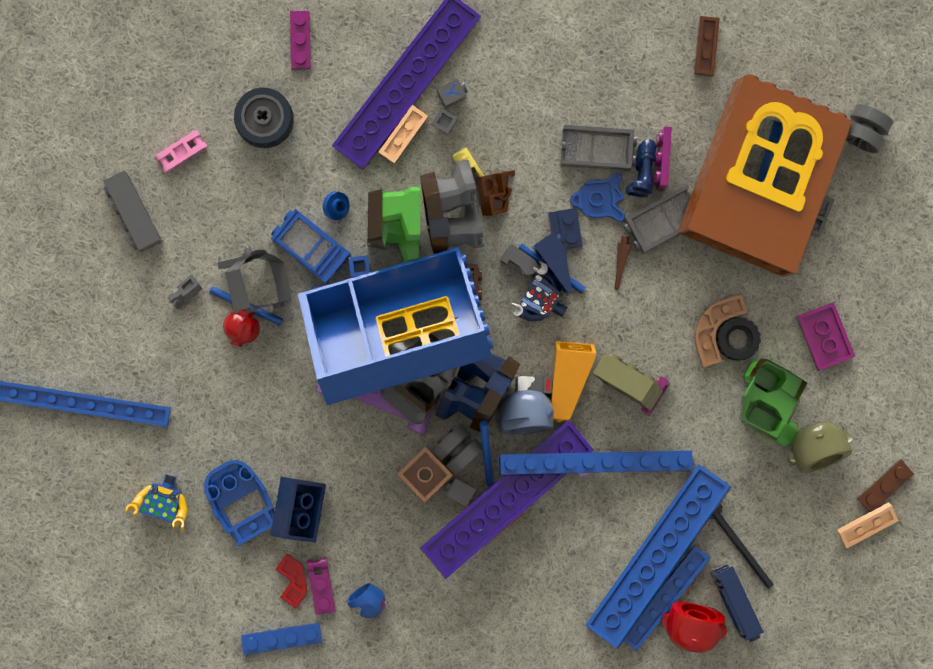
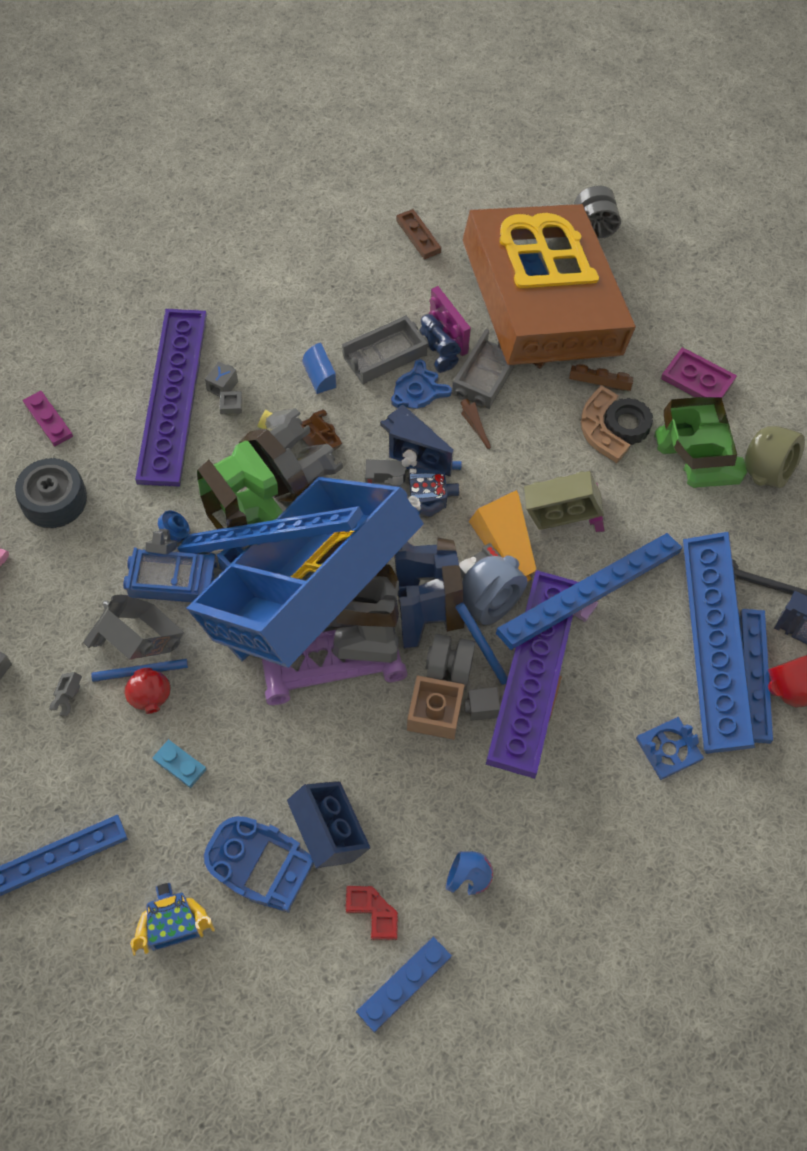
camera: 30 degrees left, 25 degrees down
(231, 395) = (179, 763): none -> dark azure plate
(316, 218) = (161, 542): none -> dark grey tile
(321, 587) = (408, 897): magenta plate -> none
(386, 281) = (272, 531): none -> blue plate
(403, 134) = (198, 436): light nougat plate -> none
(533, 132) = (319, 369): none -> blue brick
(575, 623) = (655, 757): none -> blue piece
(747, 286) = (601, 377): none -> reddish brown plate

